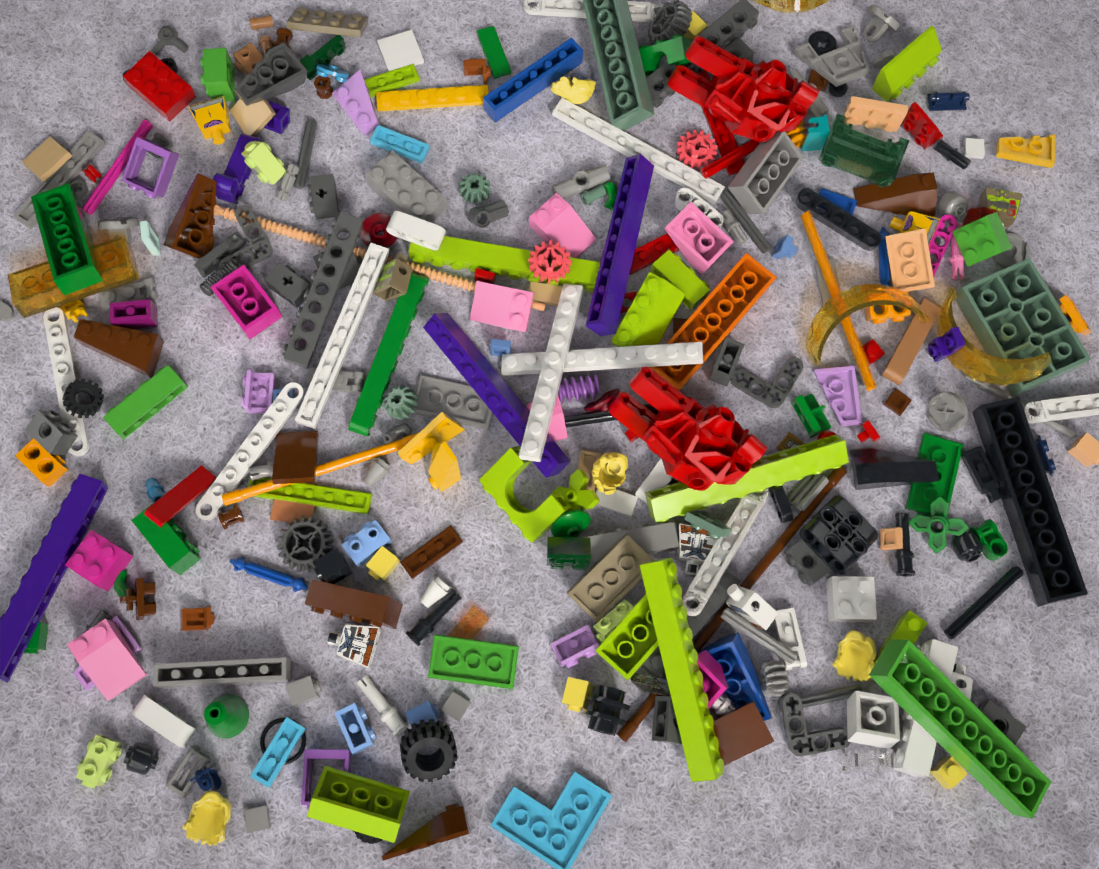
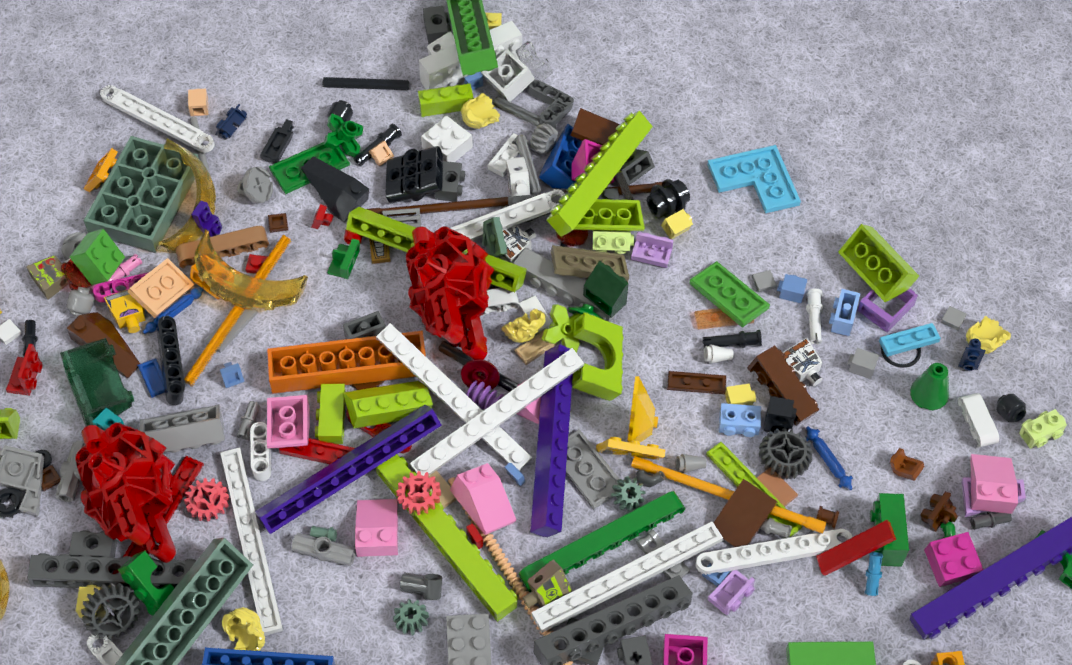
camera: 135 degrees left, 15 degrees down
(176, 789) = (970, 389): light grey tile -> none
(222, 672) = (913, 413): light grey brick -> none
(375, 224) = (516, 636): dark red dish -> none
(416, 230) = (497, 605): white beam -> none
(431, 765) = (806, 260): black tyre -> none
(444, 827) = (835, 219): reddish brown wedge -> none
(611, 190) = (308, 521): green arm -> none
(729, 158) = (200, 468): red axle -> none
(745, 221) = (234, 417): dark grey axle -> none
(775, 389) = (349, 293): dark grey beam -> none
(781, 503) = (430, 220): black beam -> none
(842, 393) = (308, 254): lavender wing -> none
(874, 114) = (50, 404): light nougat plate -> none
(990, 538) = (321, 105): green piece -> none
(1029, 502) = (271, 105): black brick -> none

